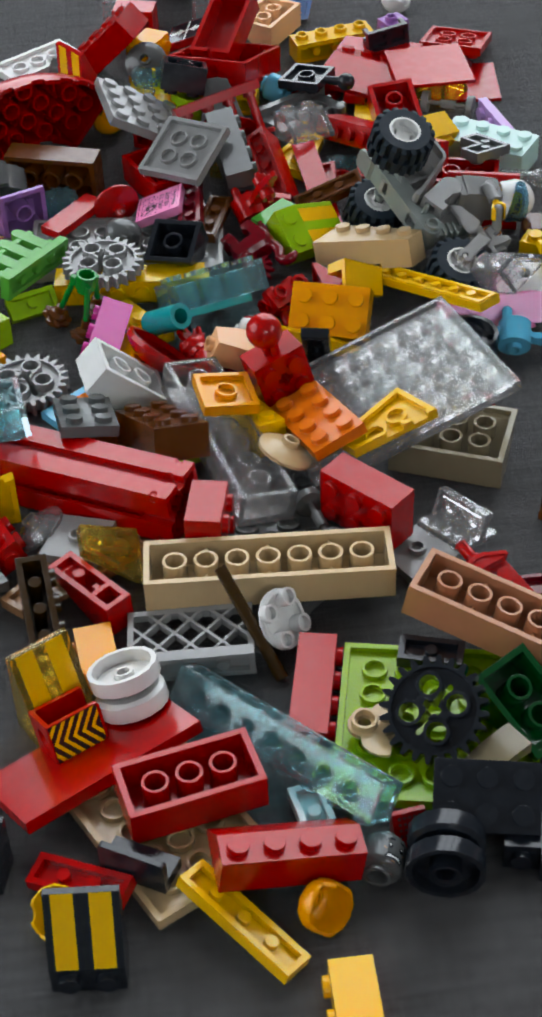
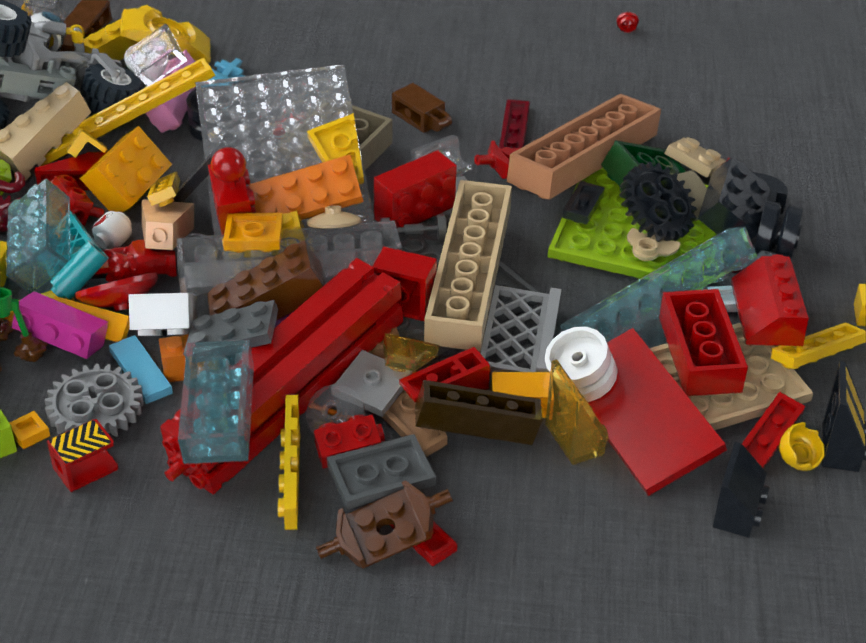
camera: 80 degrees left, 0 degrees up
(68, 725) = (614, 423): piece -> none
(148, 865) = (763, 389): black panel -> none
(251, 623) = (523, 282): dark brown piece -> none
(282, 618) = (524, 269): white dish -> none
(316, 681) = (587, 273): brick -> none
(325, 906) = (814, 305): light orange hair -> none

